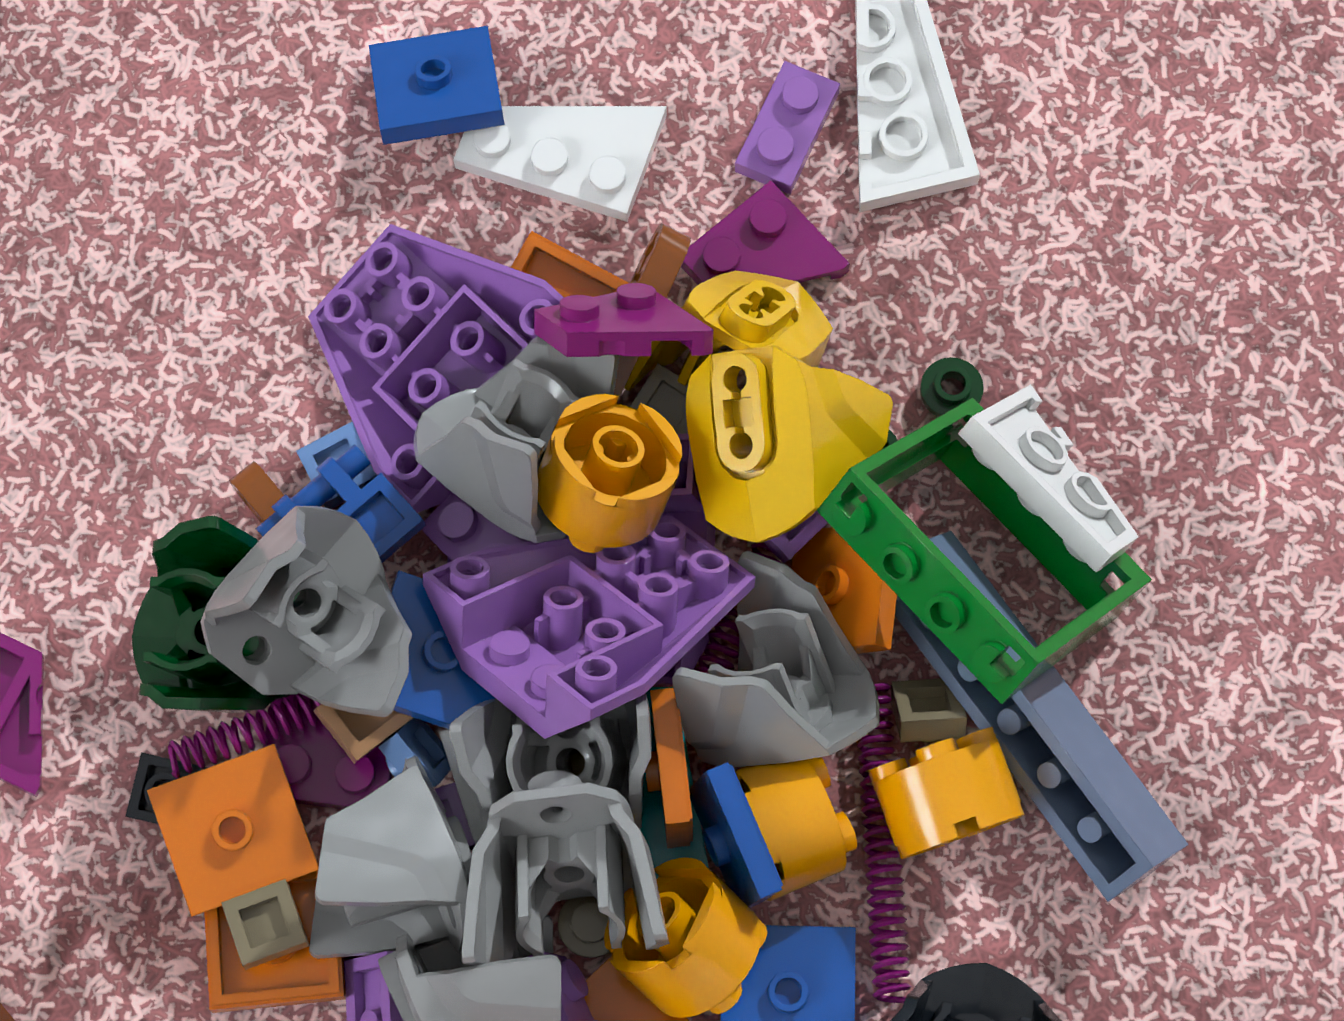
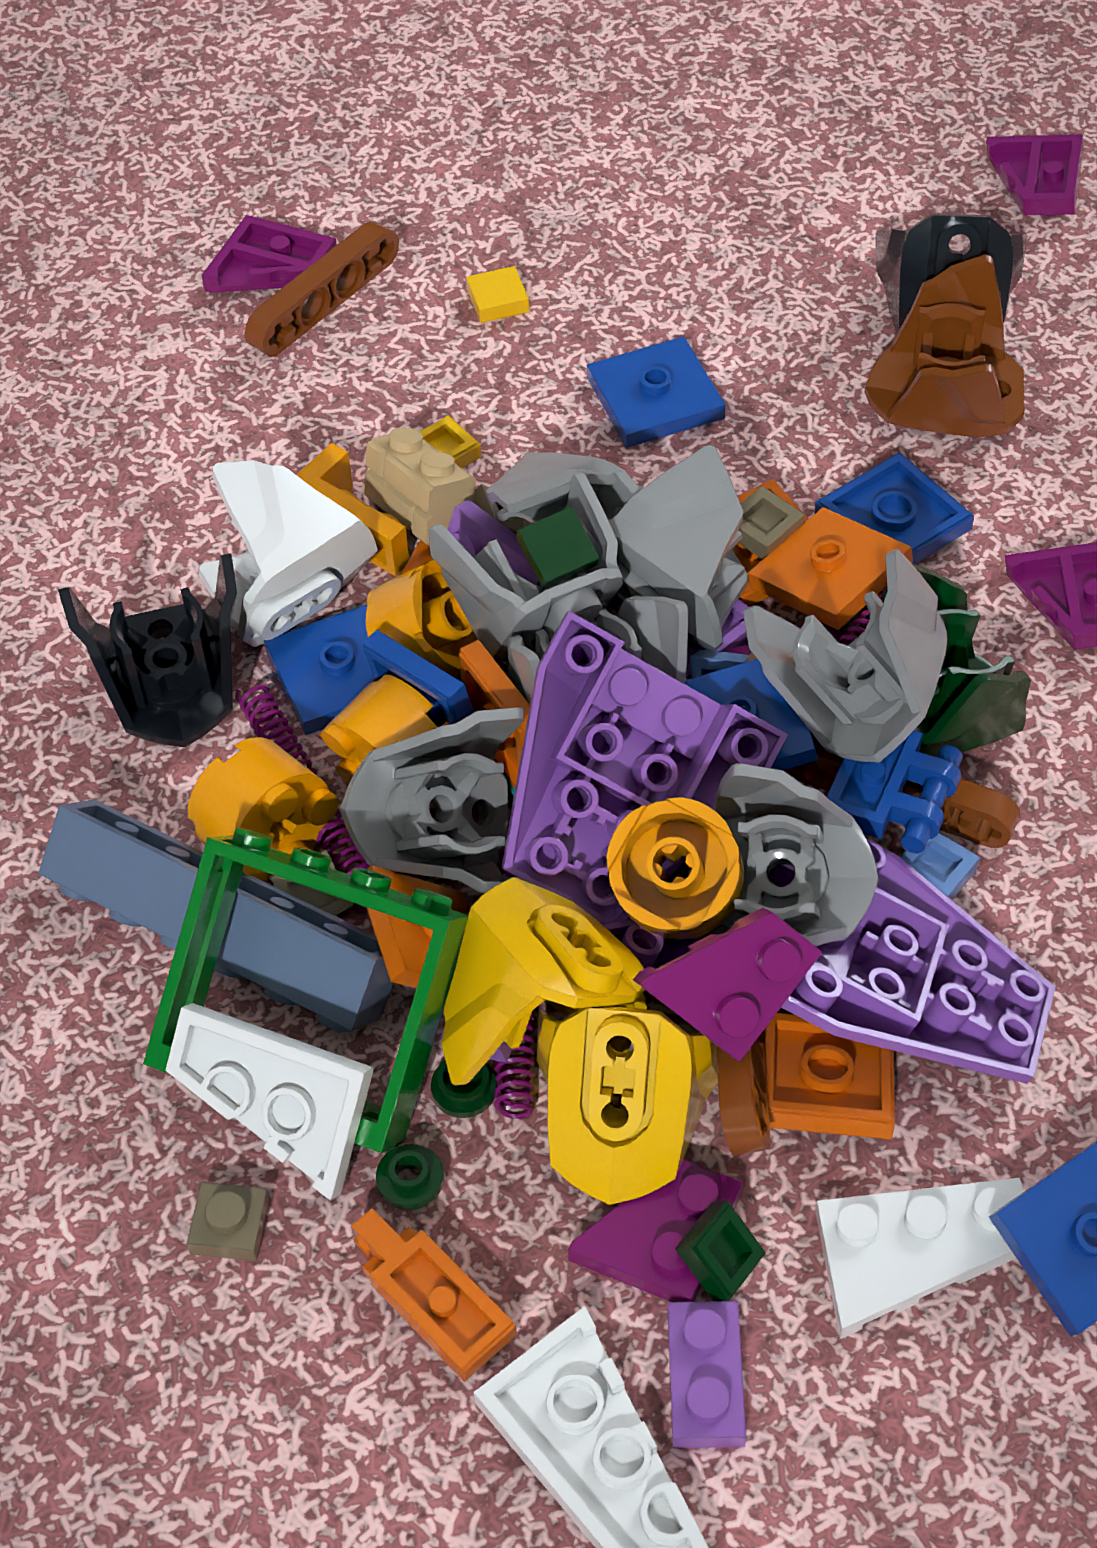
camera: 155 degrees right, 20 degrees down
(110, 907) = (901, 505): none -> blue plate
(538, 873) = (557, 547): none -> dark green tile
(729, 200) = (720, 1251): none -> dark green tile
(977, 277) = (433, 1295): none -> orange hinge
(1120, 422) = (228, 1221): none -> dark tan plate

